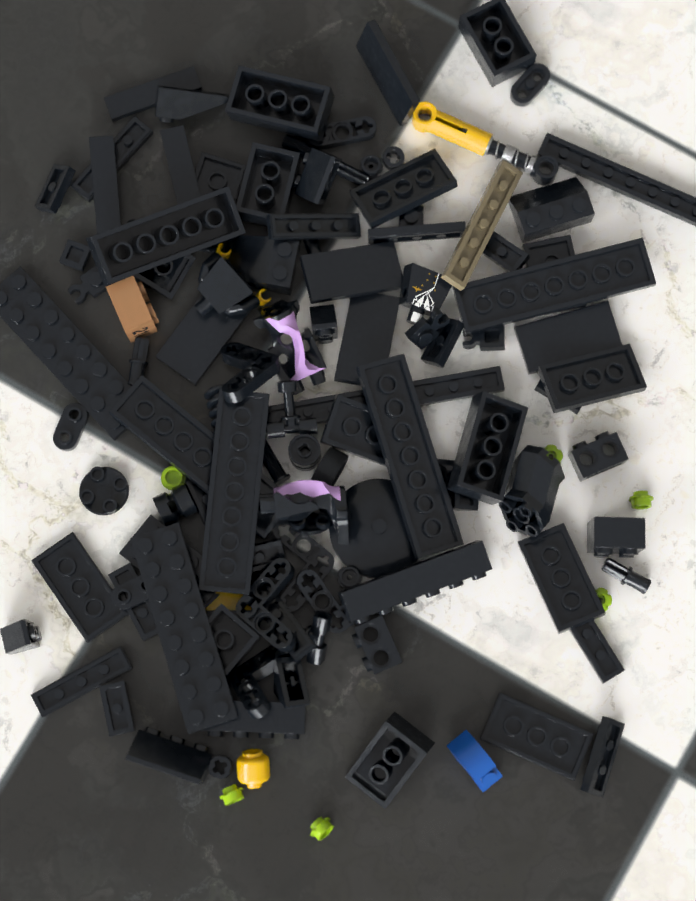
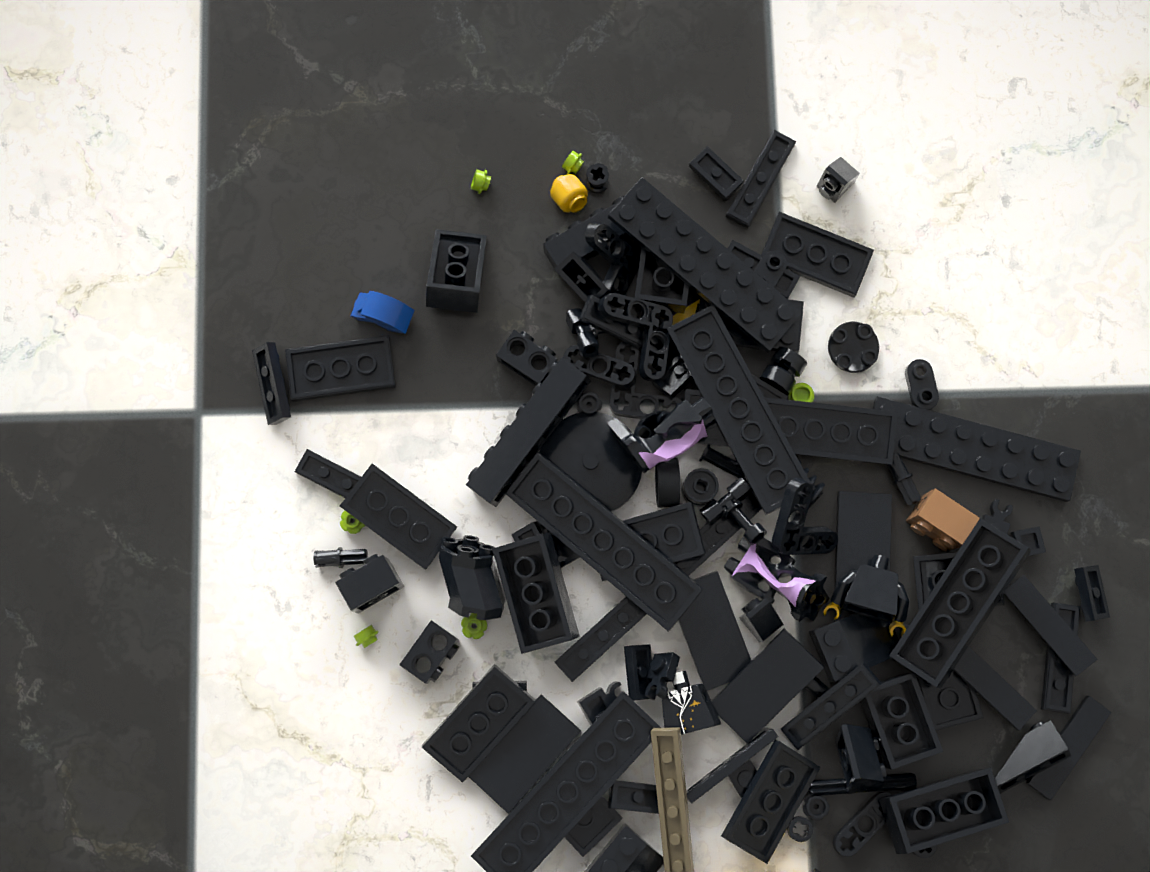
camera: 145 degrees right, 0 degrees up
(170, 755) = (645, 156): black slope -> none

